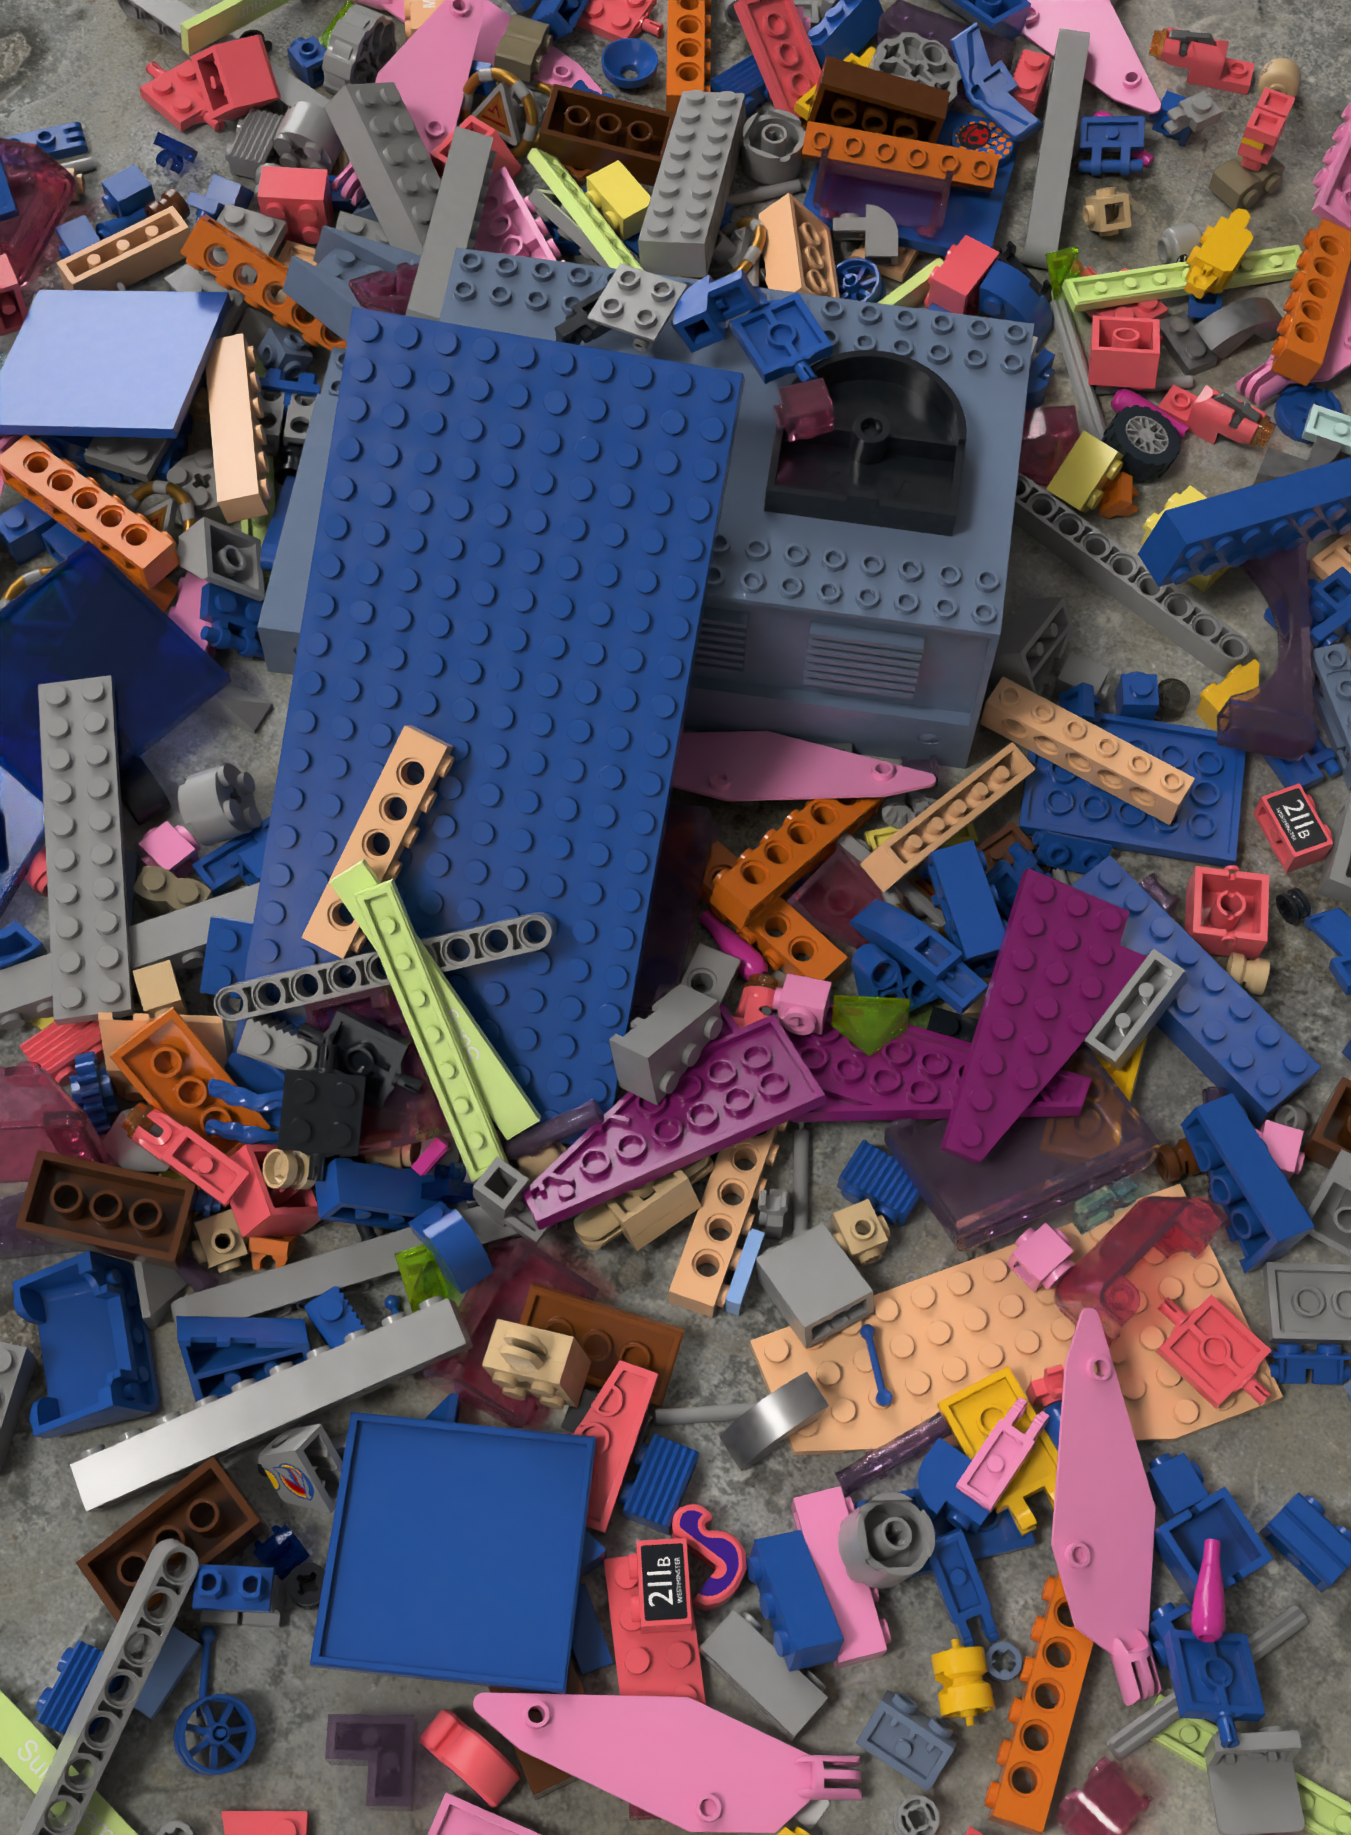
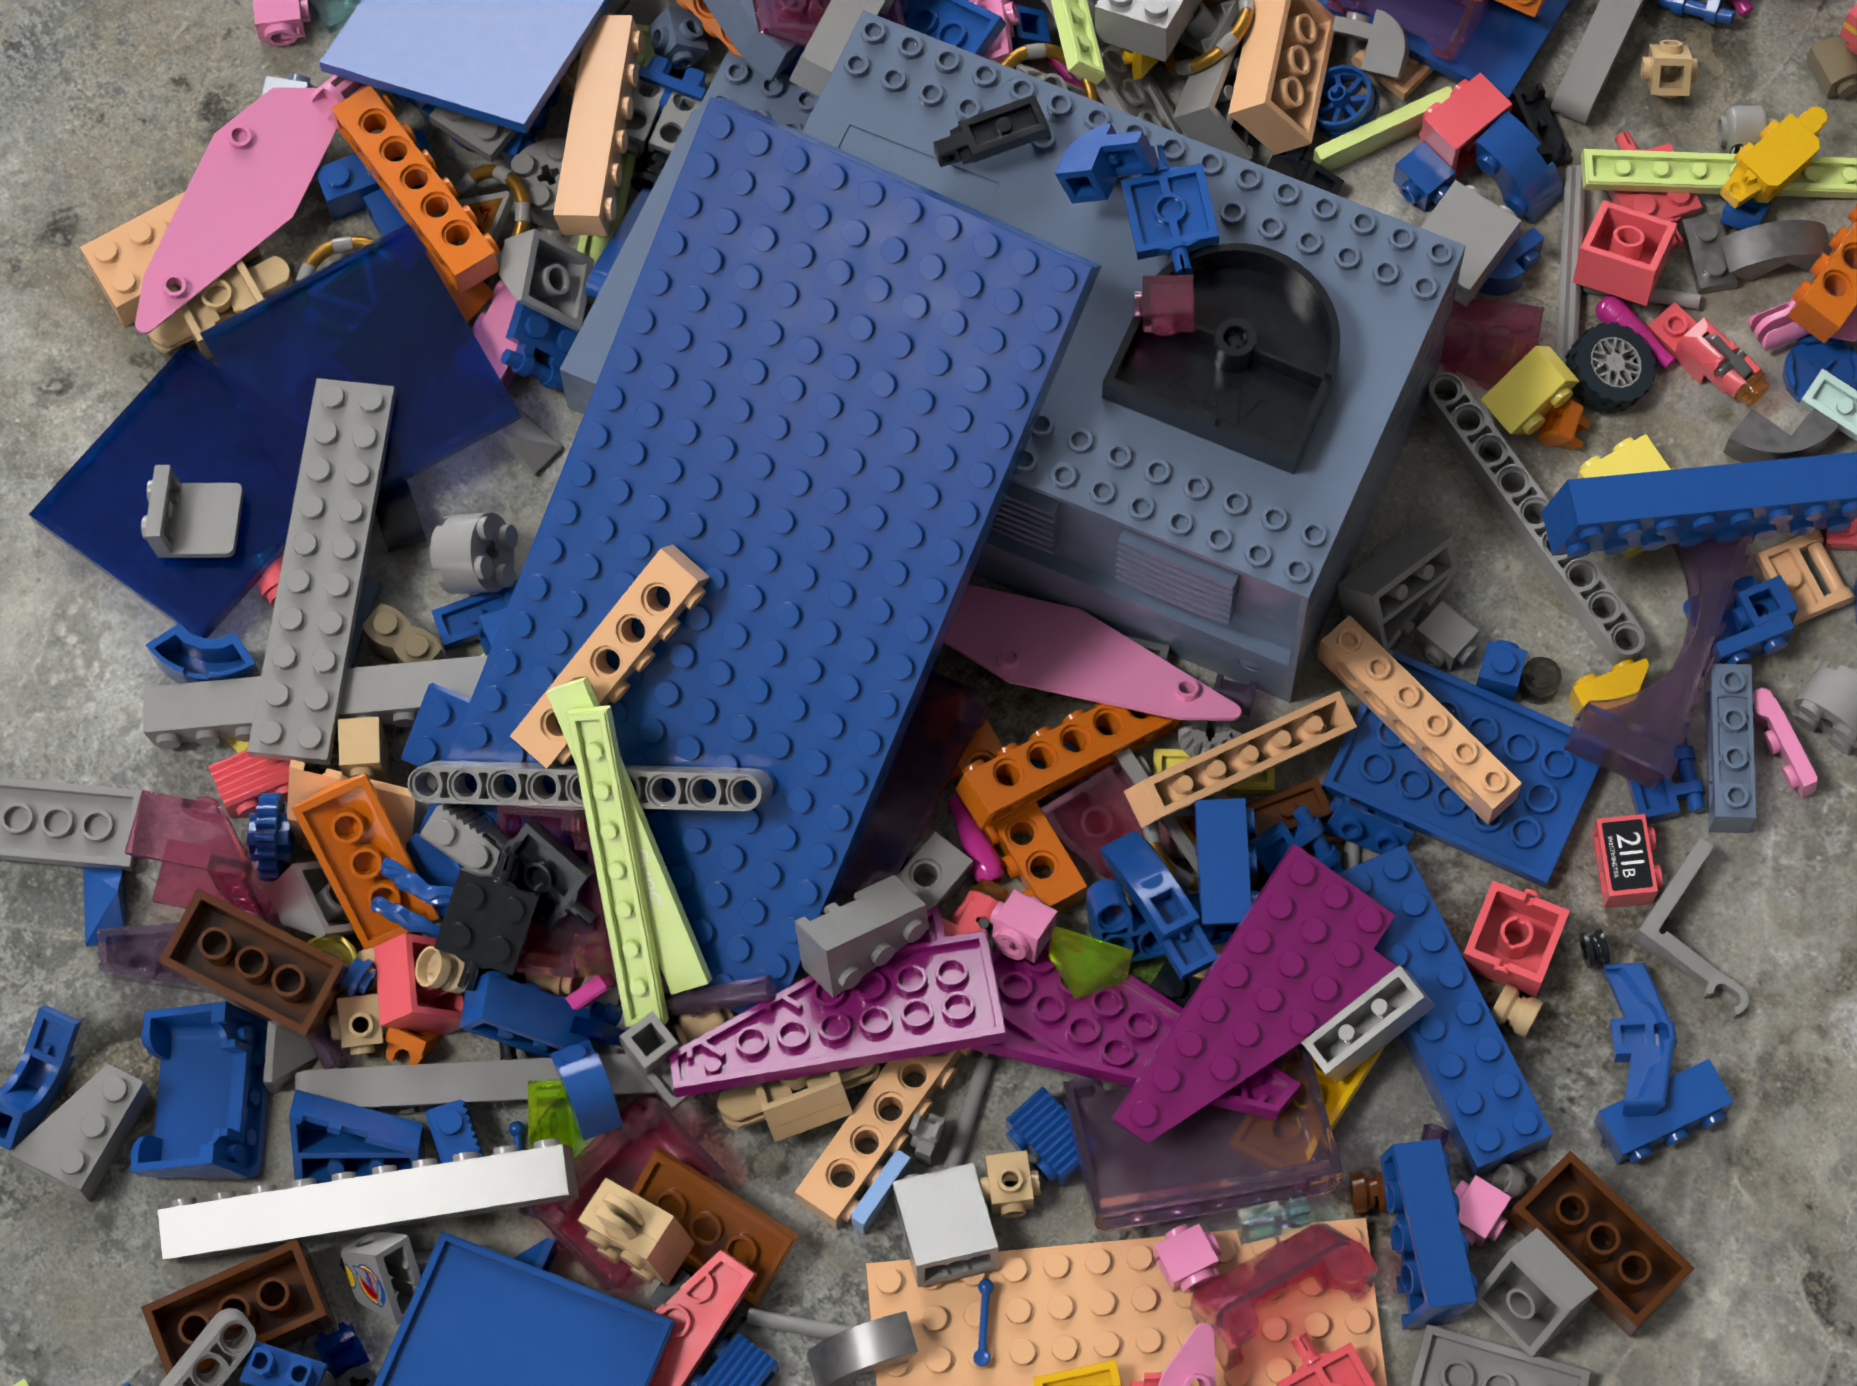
camera: 20 degrees right, 5 degrees up
(170, 849) = (411, 590): bright pink brick -> none
(185, 1152) = (343, 926): coral plate -> none
(637, 304) = (1027, 135): light grey hinge -> none
(1063, 265) = (1588, 133): clear neon green slope -> none
(1081, 702) = (1428, 664): blue tile -> none
(1159, 893) = (1448, 899): clear purple bush -> none

